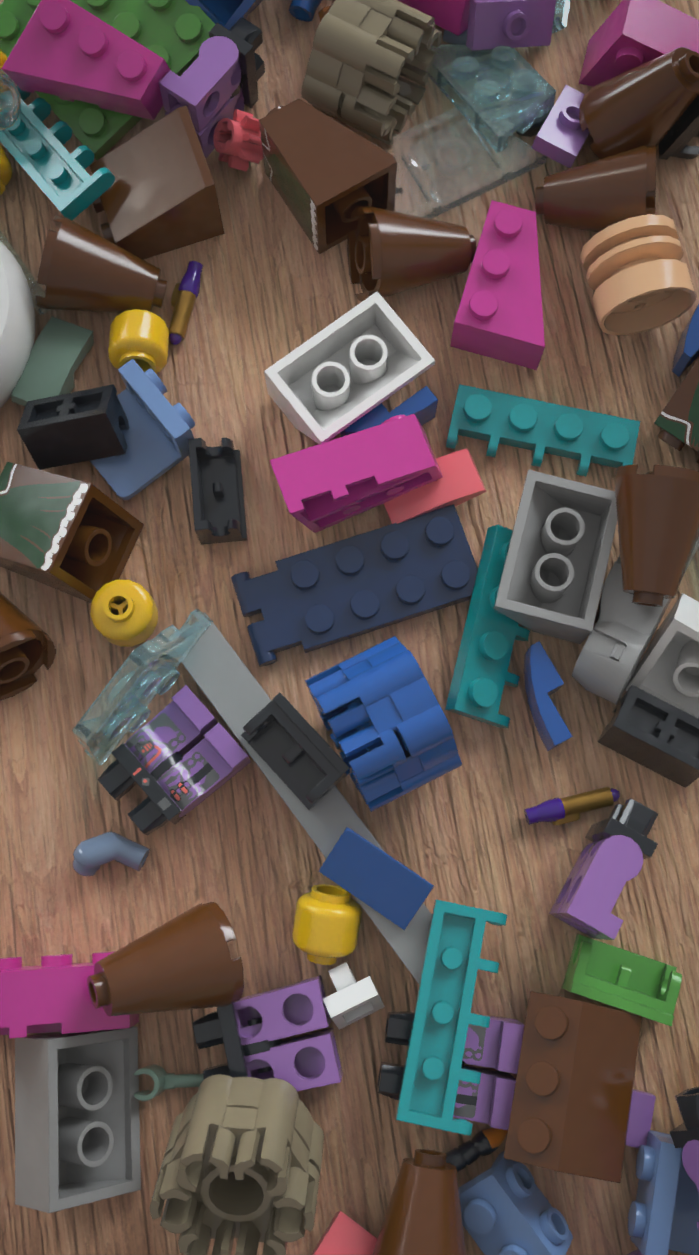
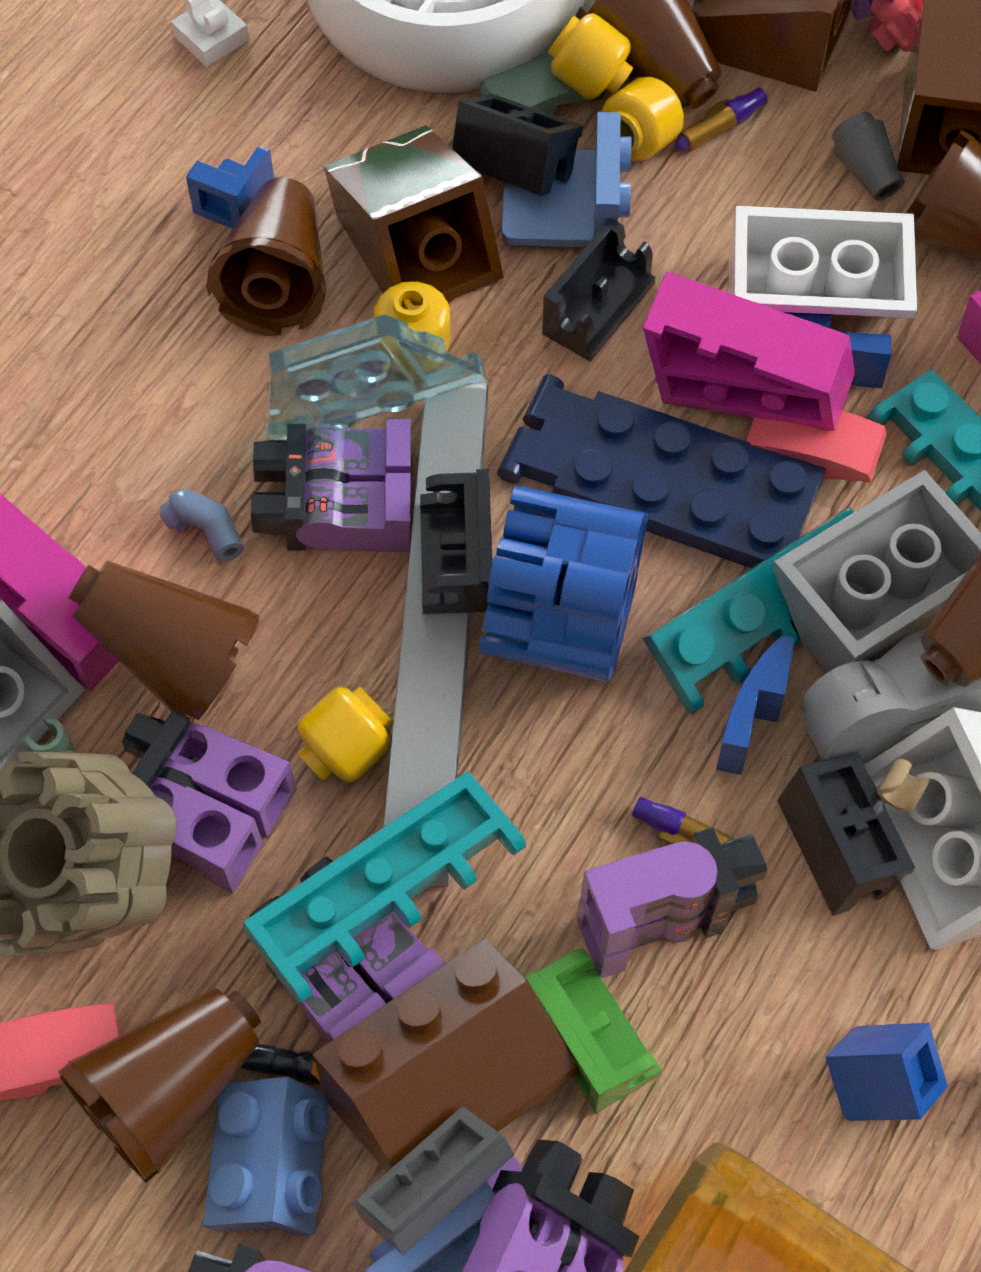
camera: 40 degrees right, 15 degrees down
(72, 326) = (590, 56): none -> yellow head
(300, 259) = (867, 153): none -> dark grey cone
(353, 998) = (304, 820): white tile -> none
(376, 878) = (429, 714): blue slope -> none
(639, 1174) = (433, 1179): none -> dark grey plate
(676, 687) = (900, 788): none -> tan hand

